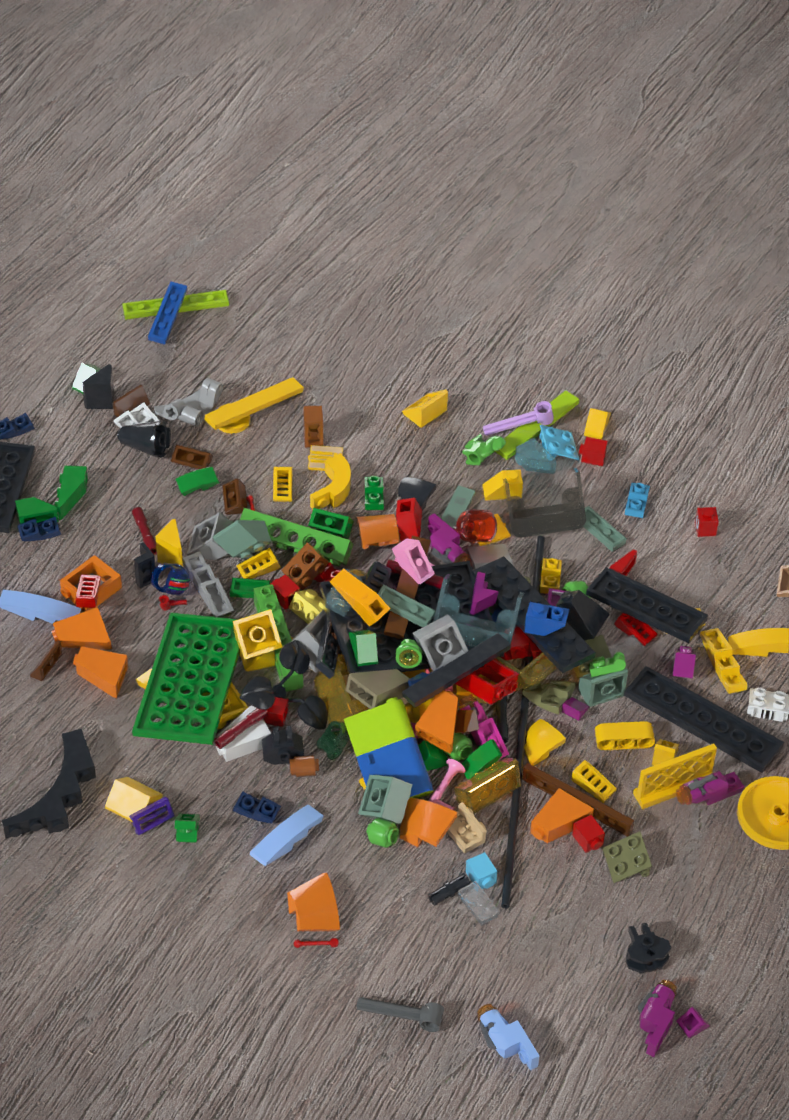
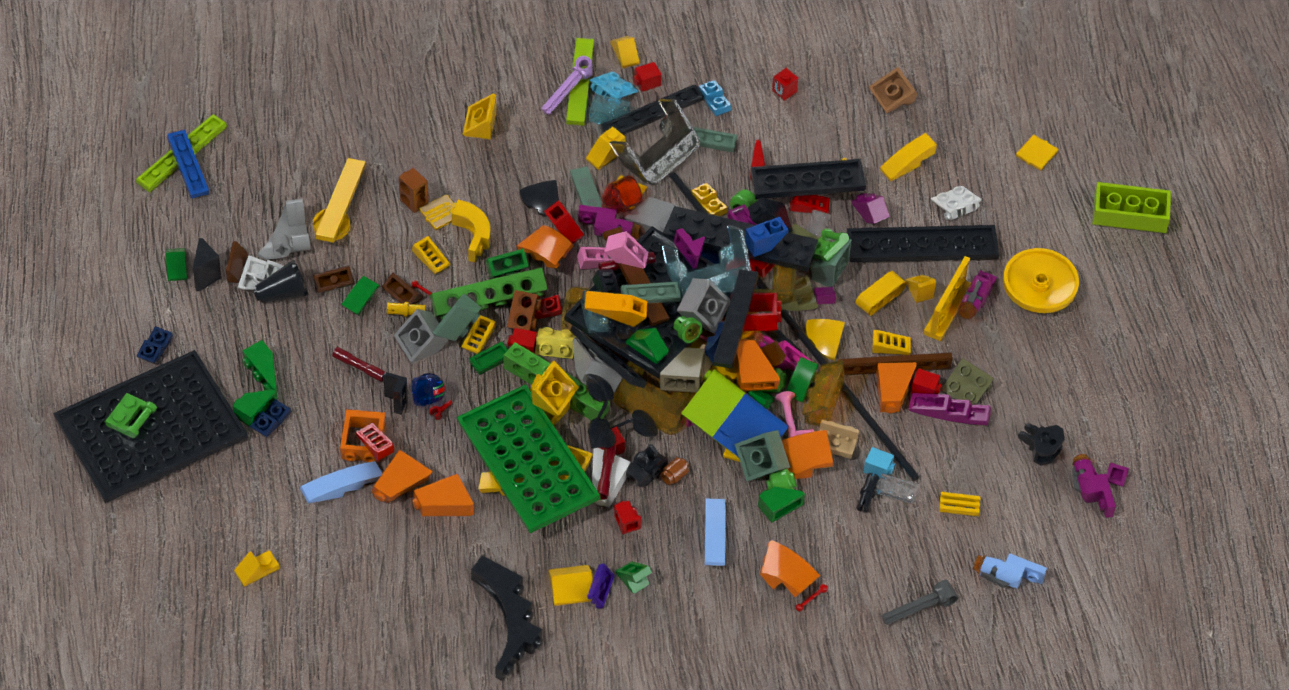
camera: 40 degrees left, 5 degrees up
(47, 661) = (390, 521): reddish brown slope -> none
(169, 544) = (404, 361): yellow slope -> none
(207, 585) = (458, 378): light grey slope -> none
(215, 508) = (403, 309): none -> yellow pin
(228, 776) = (627, 517): none -> red brick
(253, 808) = (670, 528): dark blue slope -> none
(333, 739) = (679, 437): clear green piece -> none
(365, 847) = (779, 502): none -> green slope
(374, 493) = (509, 218): green slope -> none
(478, 450) = (562, 129): bright green animal -> none
(523, 946) = (959, 501): none -> yellow tile
(565, 480) = (653, 111): none -> black tile
(591, 869) = (948, 409): none -> magenta slope
(722, 659) = (896, 190): yellow slope -> none

